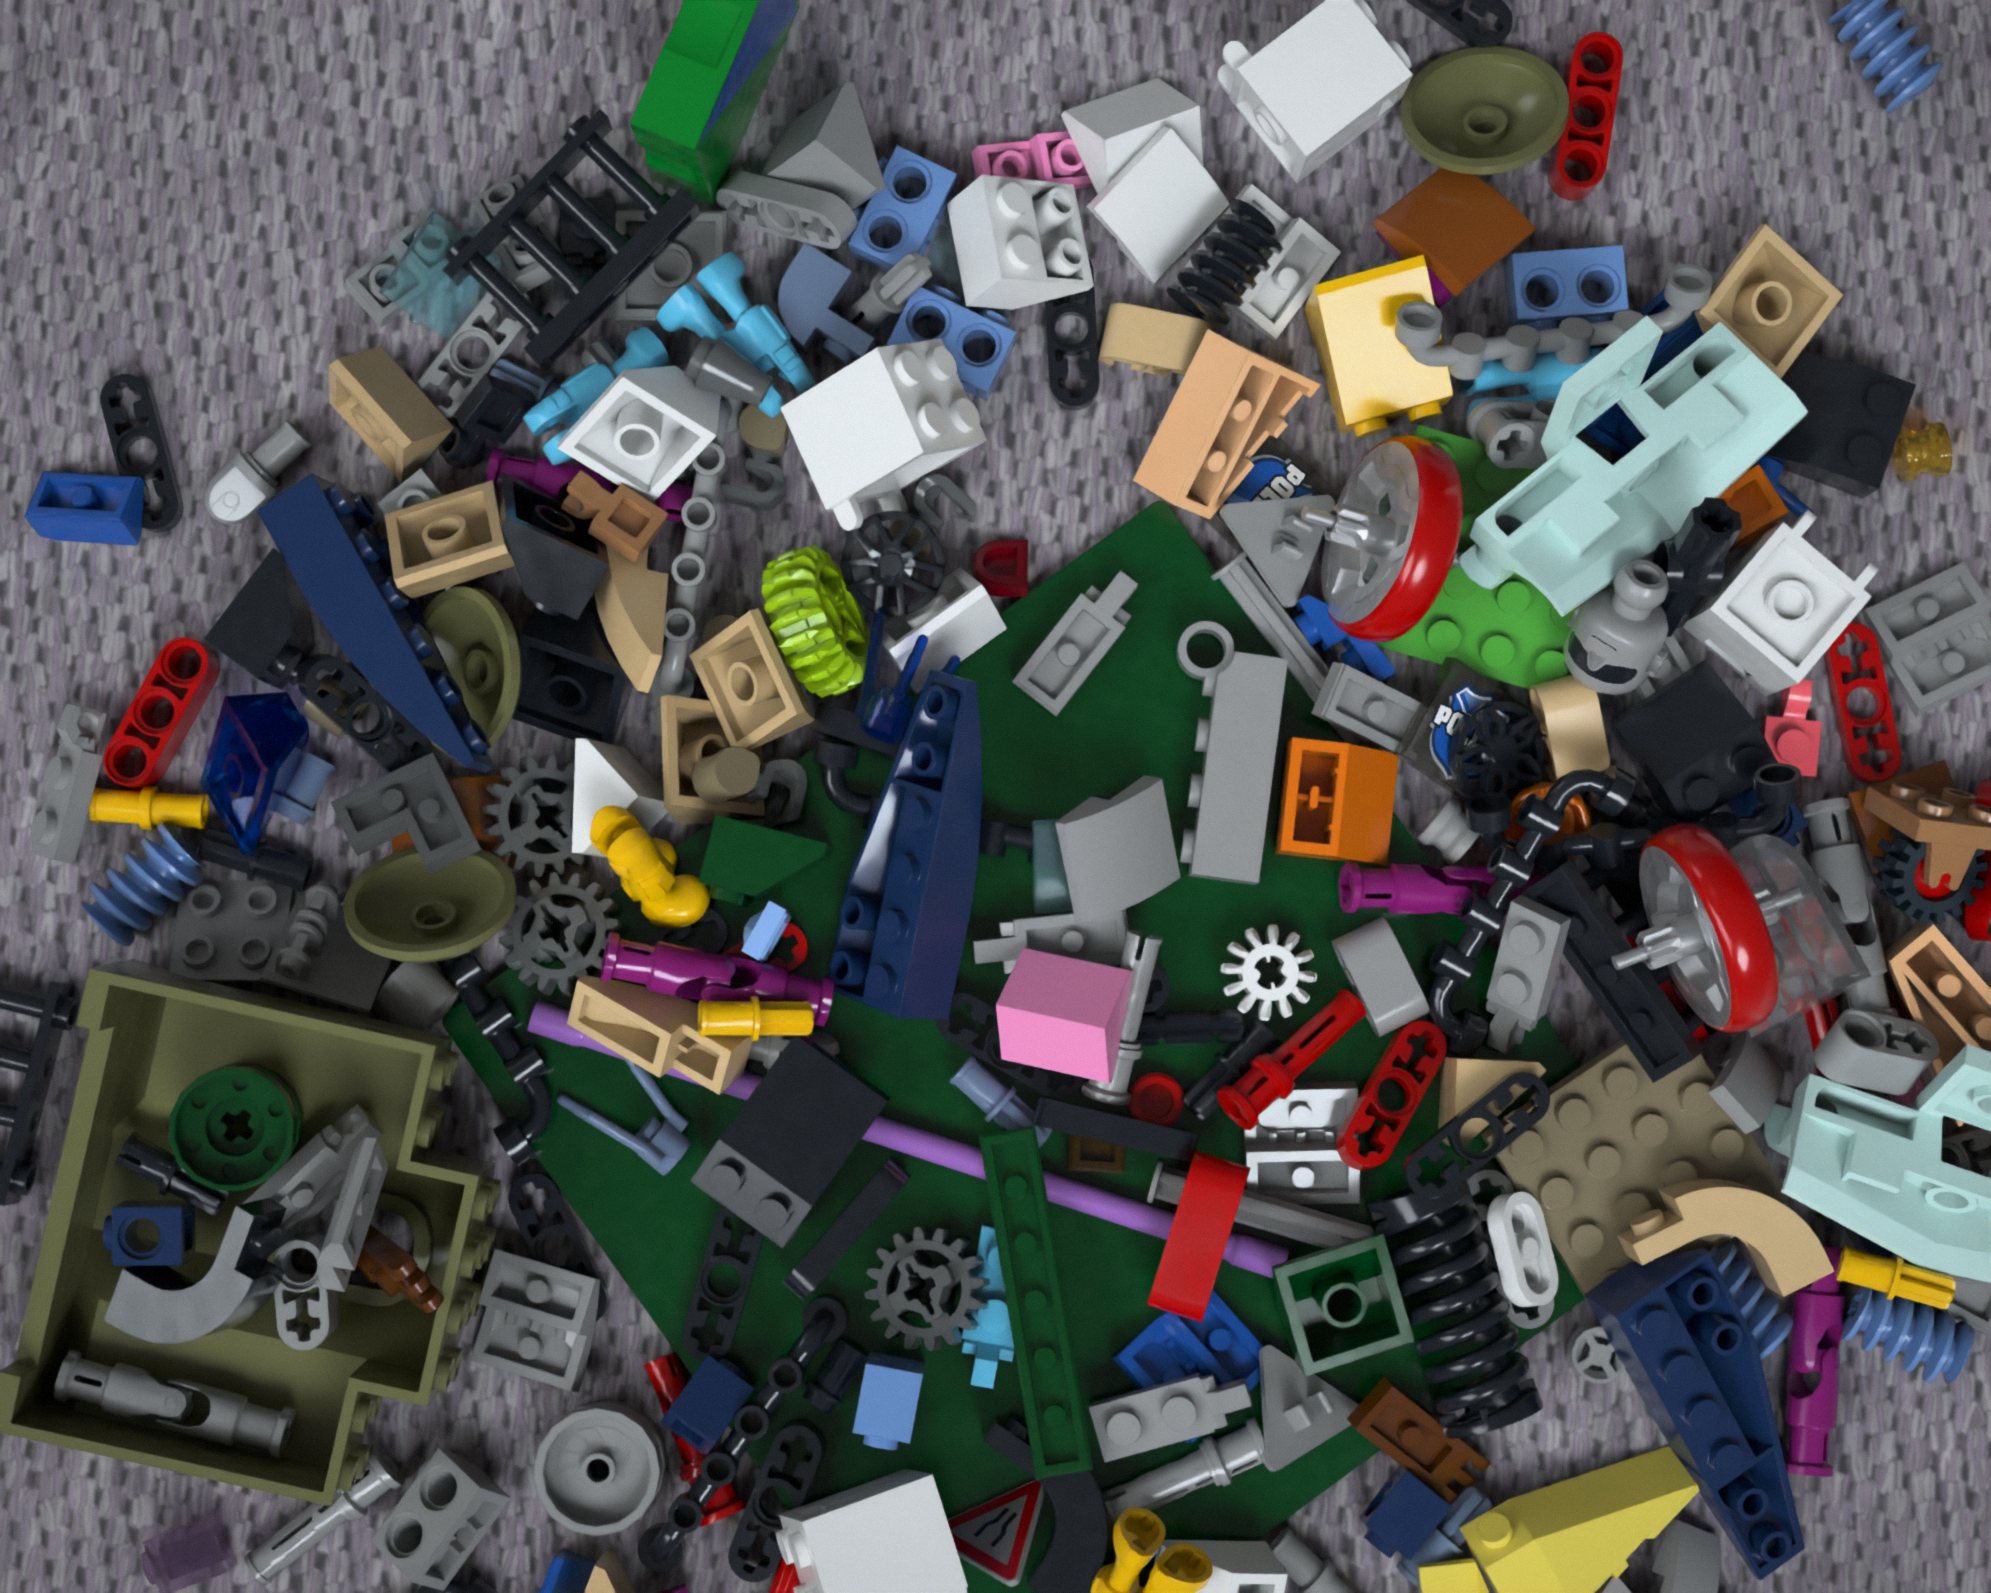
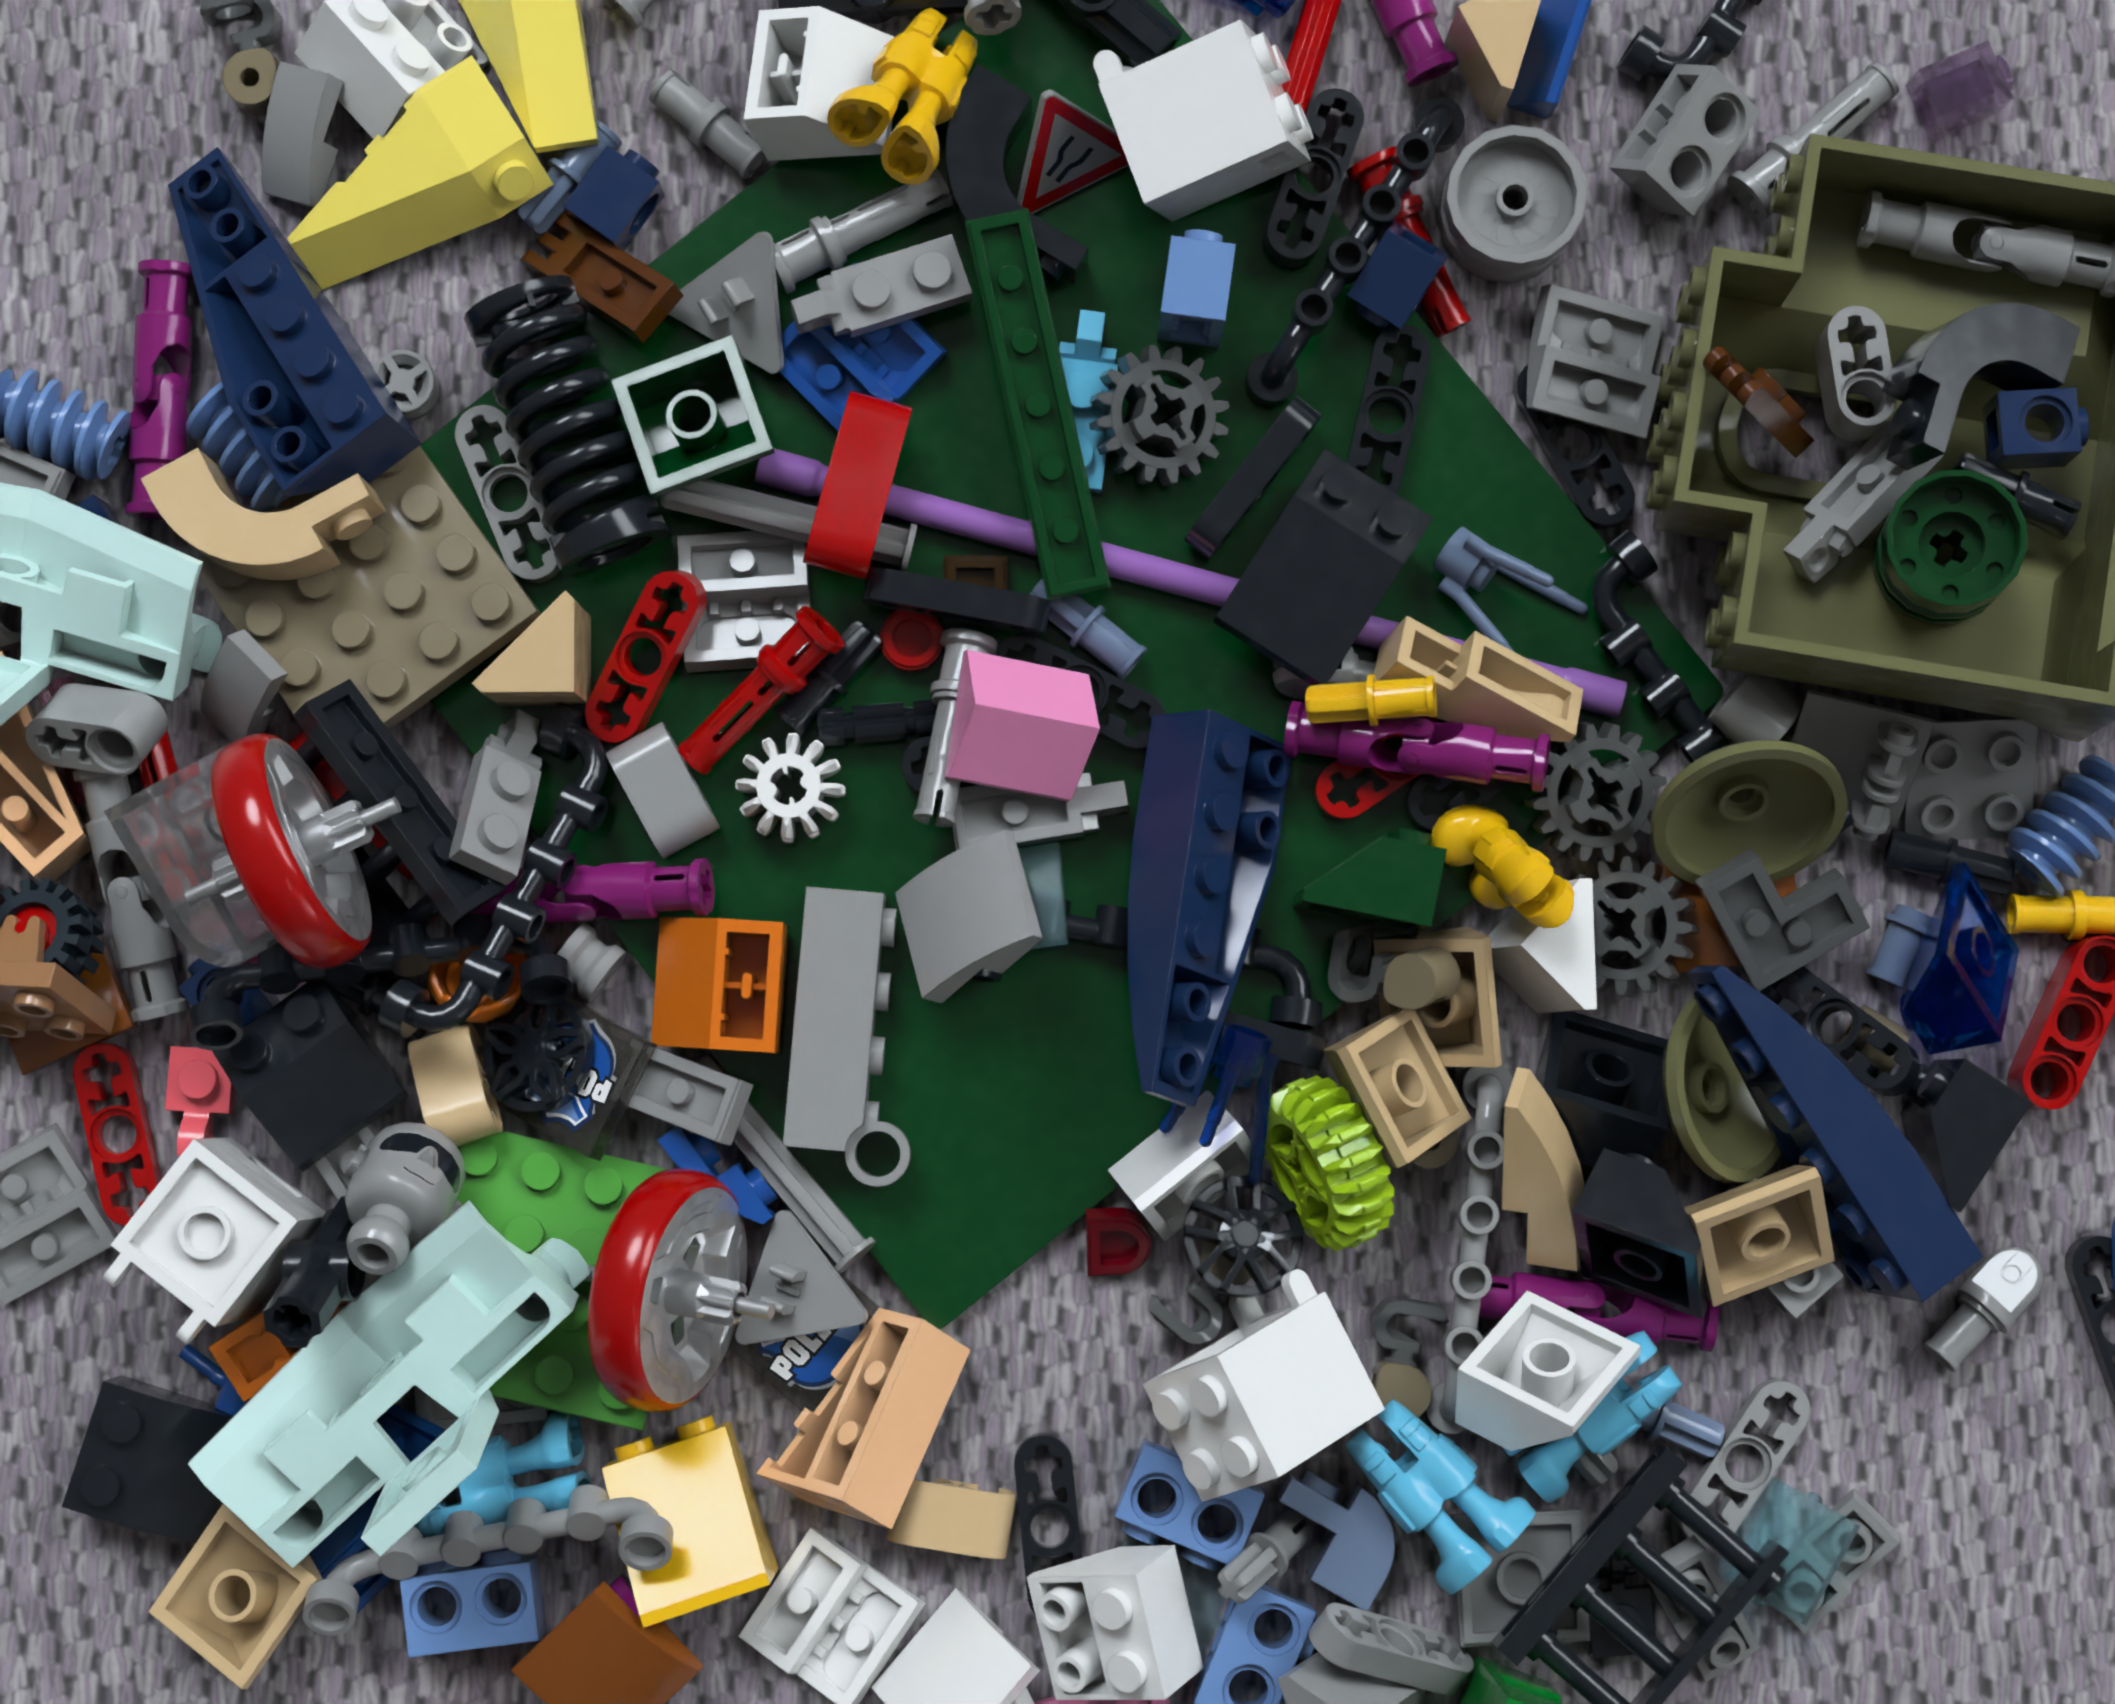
camera: 175 degrees right, 0 degrees up
(352, 1215) = (1811, 452): light grey slope -> none
(386, 410) = (1839, 1389): tan slope -> none
(489, 411) = (1721, 1392): black plate -> none
(619, 519) = (1560, 1268): medium nougat plate -> none
(727, 372) = (1449, 1445): dark grey cone -> none
(764, 931) = (1366, 803): light blue tile -> none
(834, 1376) = (1258, 315): black pin -> none
(1076, 645) = (1026, 1153): light grey hinge -> none
(1225, 263) = (872, 1610): black piece -> none
(1501, 1096) = (521, 600): black beam -> none
(1511, 431) = (531, 1426): light grey piece -> none
(1522, 1249) = (492, 489): white plate -> none
(1895, 1277) = (71, 478): yellow axle -> none
(1922, 452) = (52, 1430): clear yellow wheel -> none

